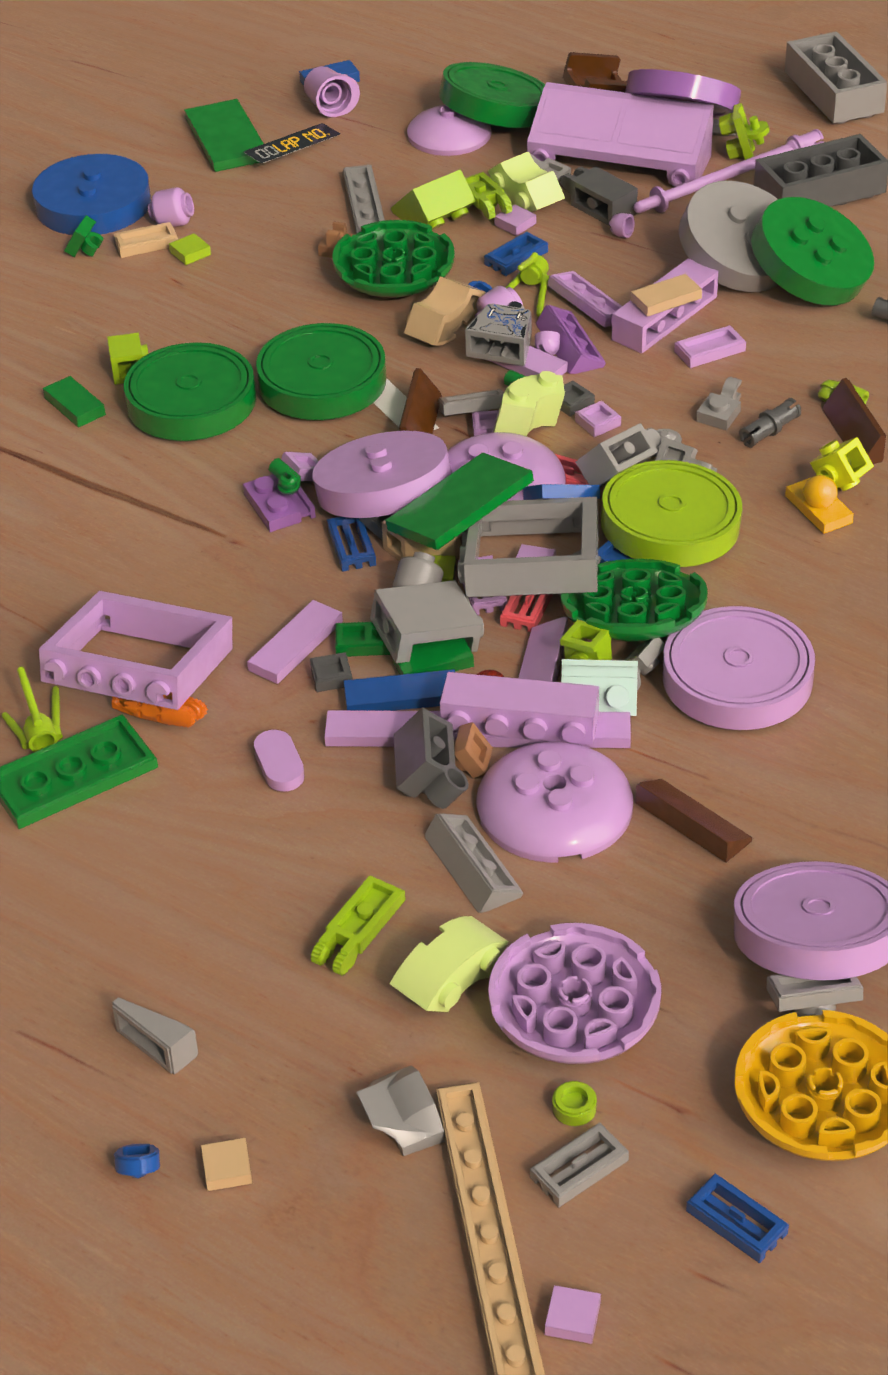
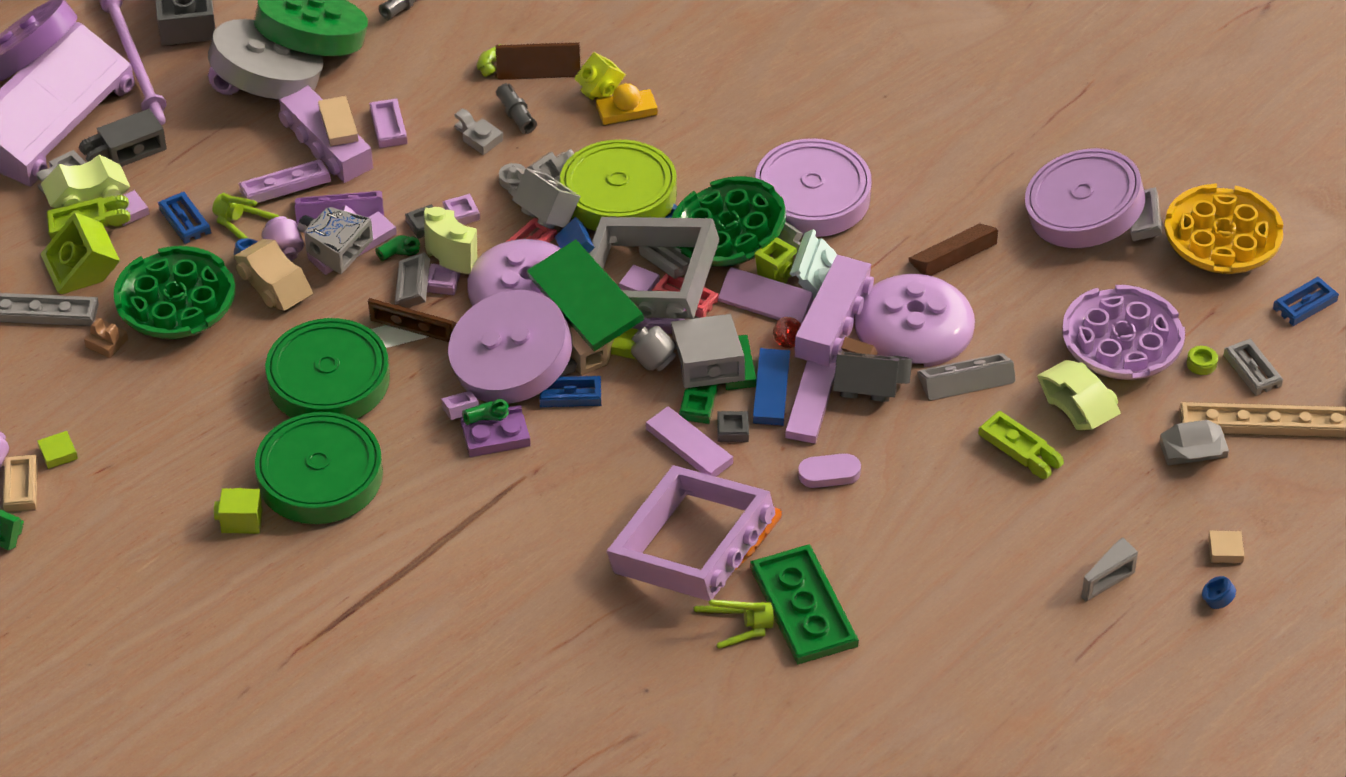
camera: 80 degrees left, 5 degrees up
(74, 401) = (282, 562): green tile -> none
(622, 225) = (179, 138): lavender hinge -> none
(737, 123) = (92, 18): lime hips -> none

